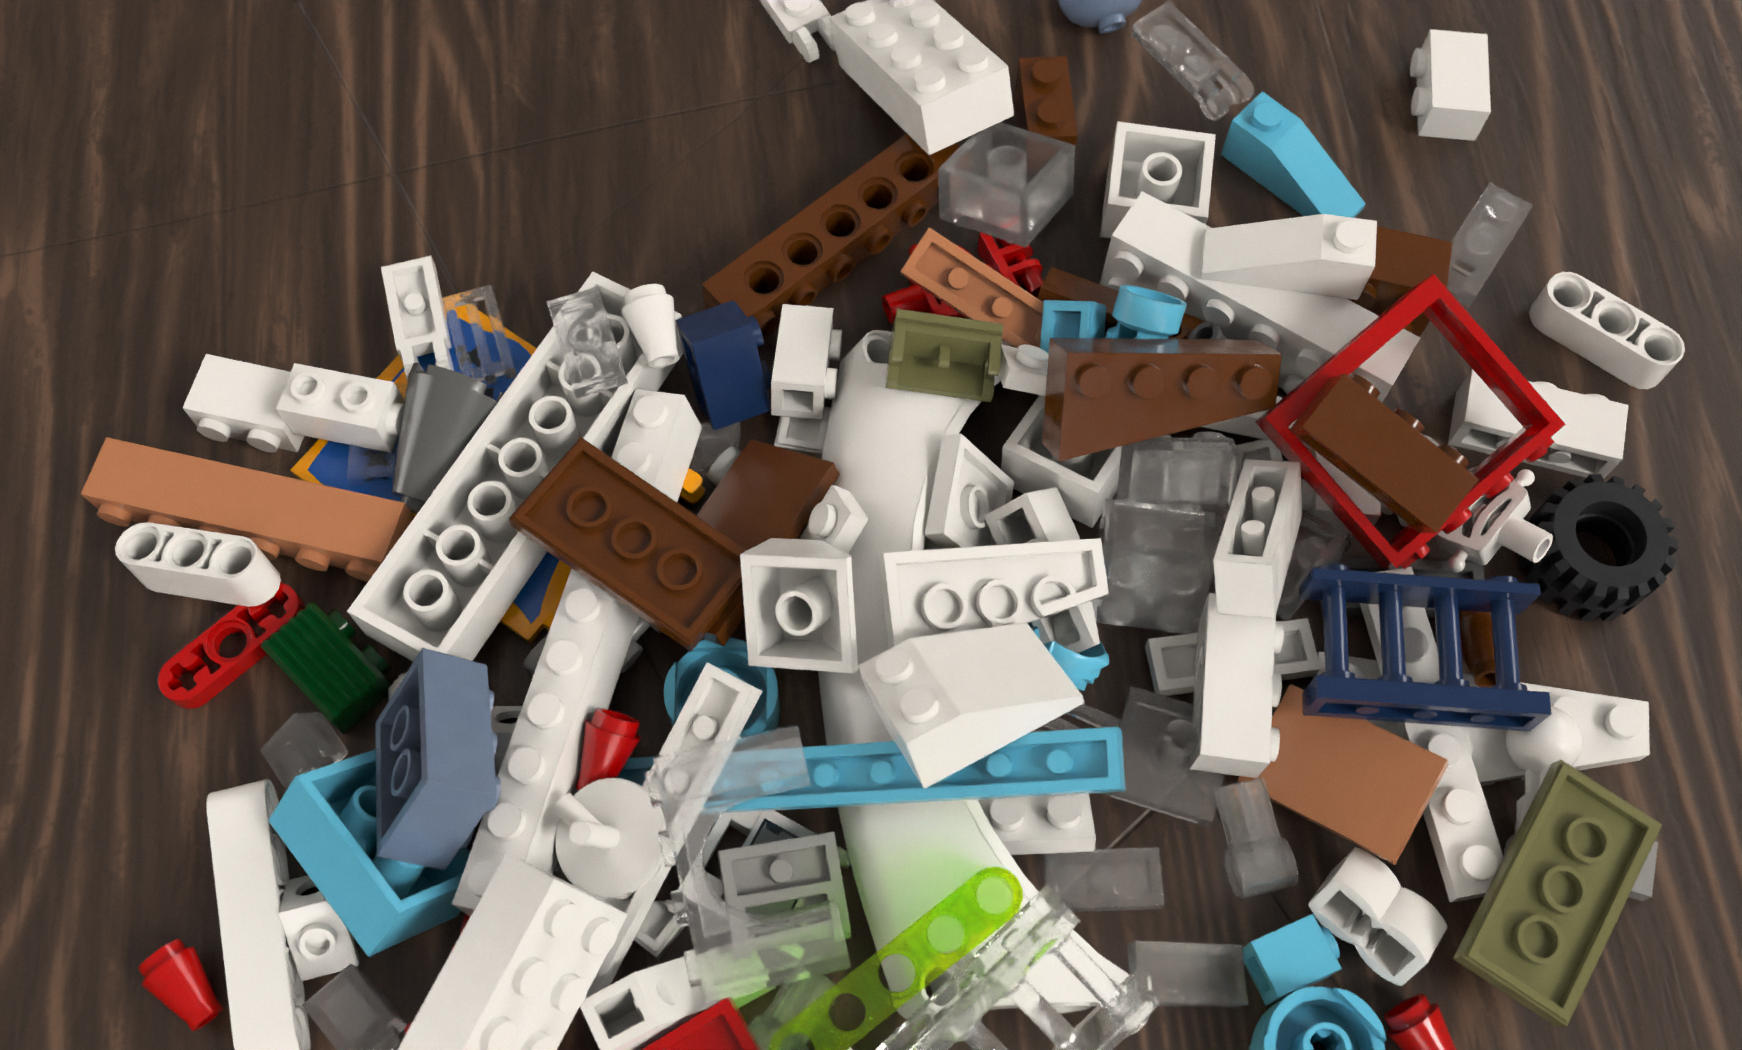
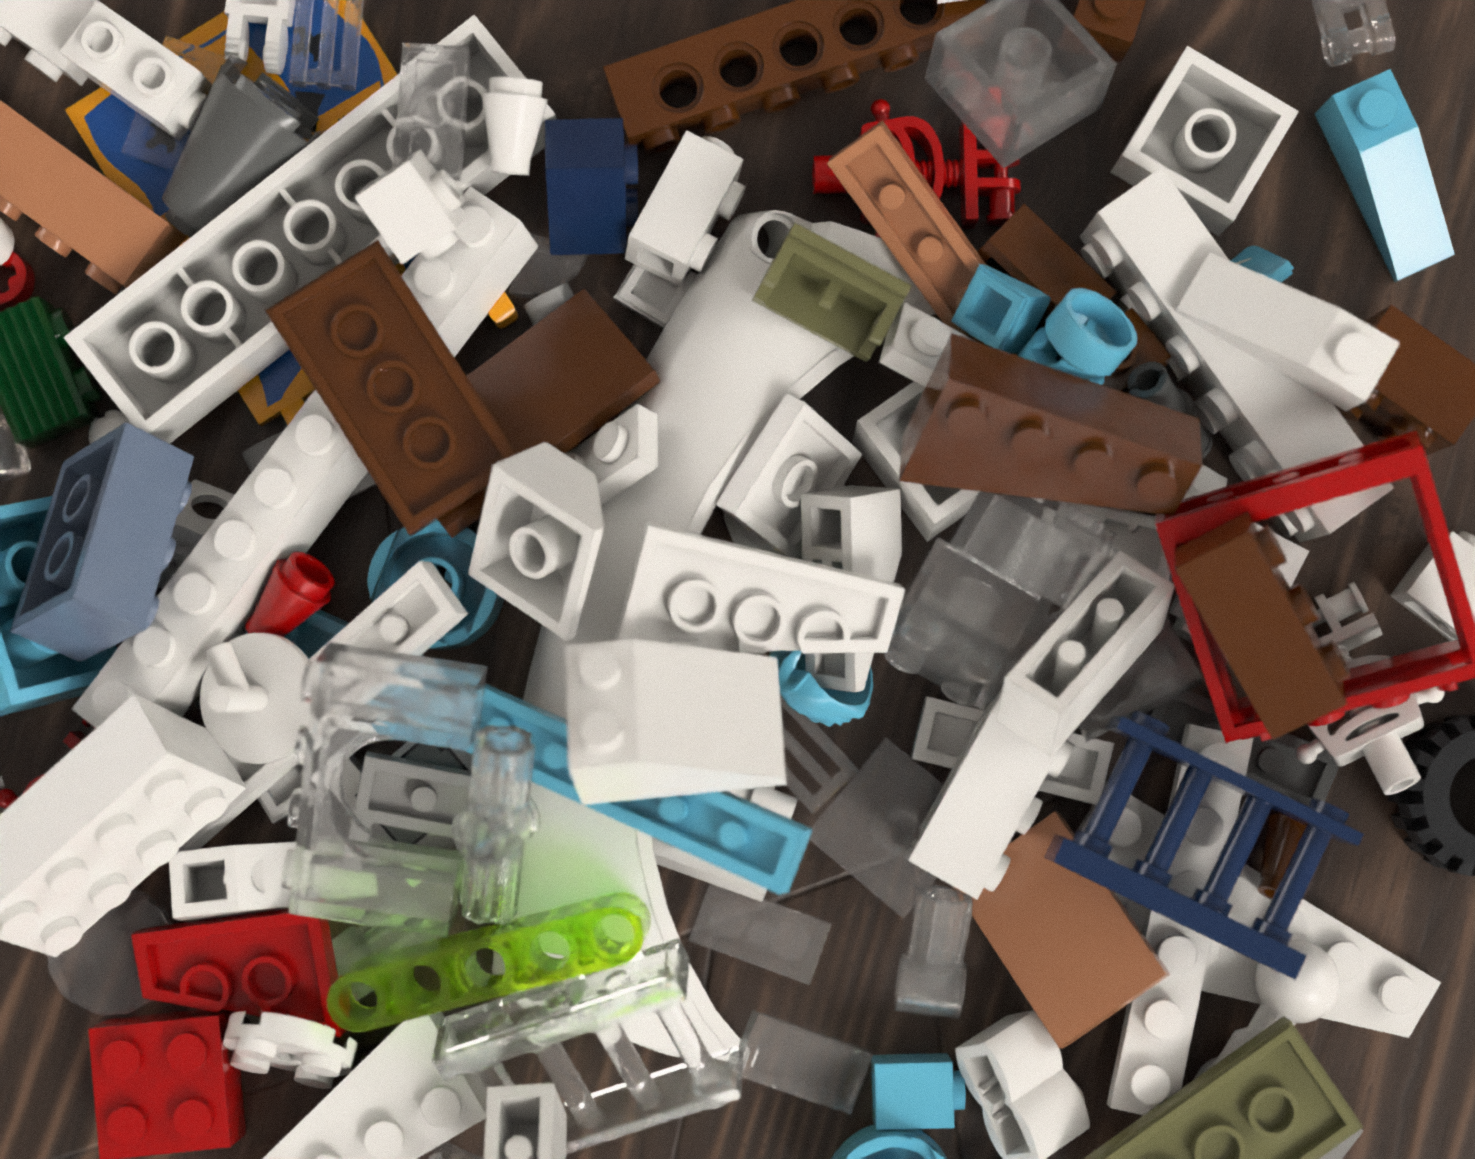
camera: 25 degrees right, 20 degrees up
(601, 402) = (414, 208): none -> white brick
(851, 817) = (496, 824): none -> clear piece

